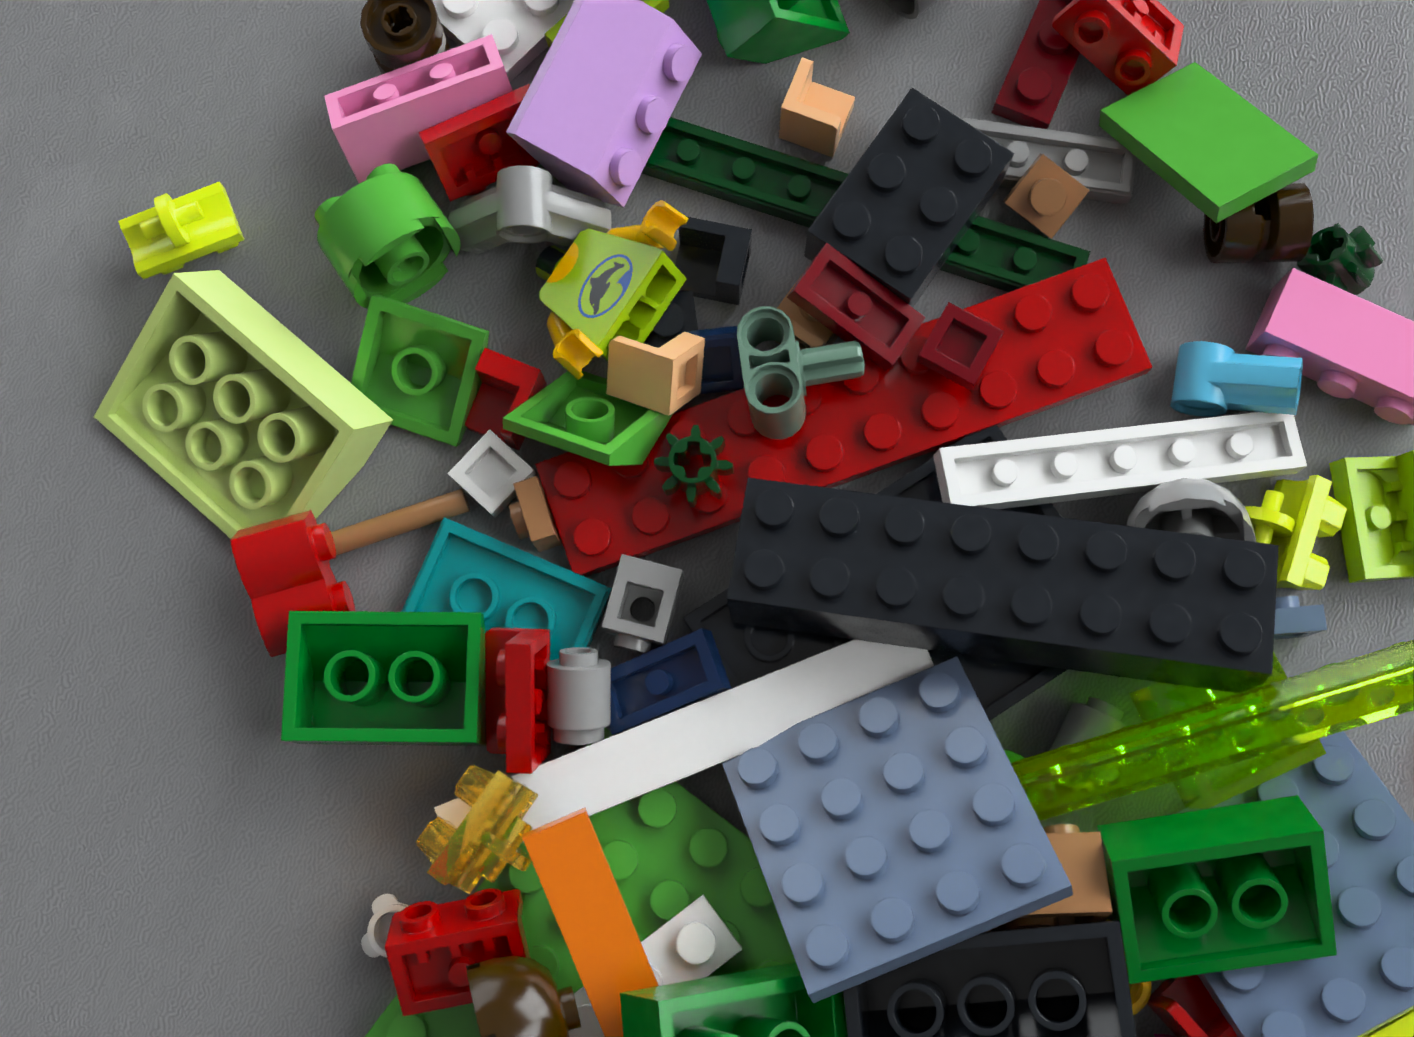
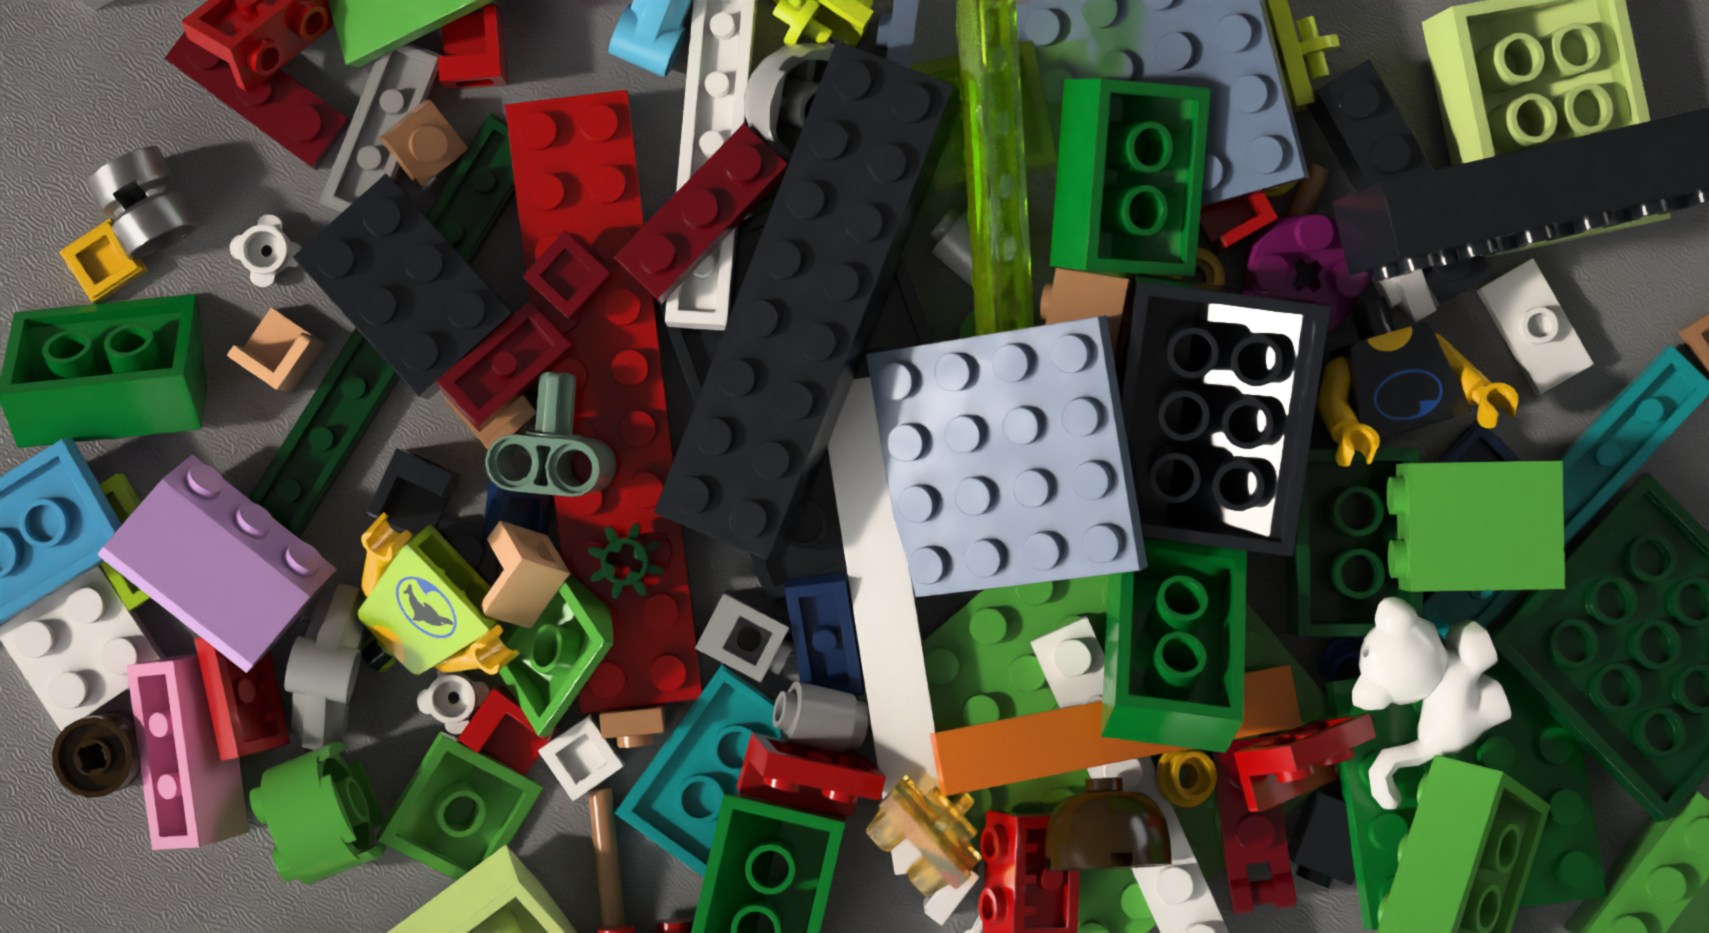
camera: 85 degrees left, 10 degrees up
(415, 865) = (944, 901): none -> white tile
(517, 327) = (457, 715): none -> white plate
(901, 67) = (249, 245): none -> white plate
(1055, 459) = (702, 213): none -> dark red plate
(1144, 224) = (474, 51): none -> red panel

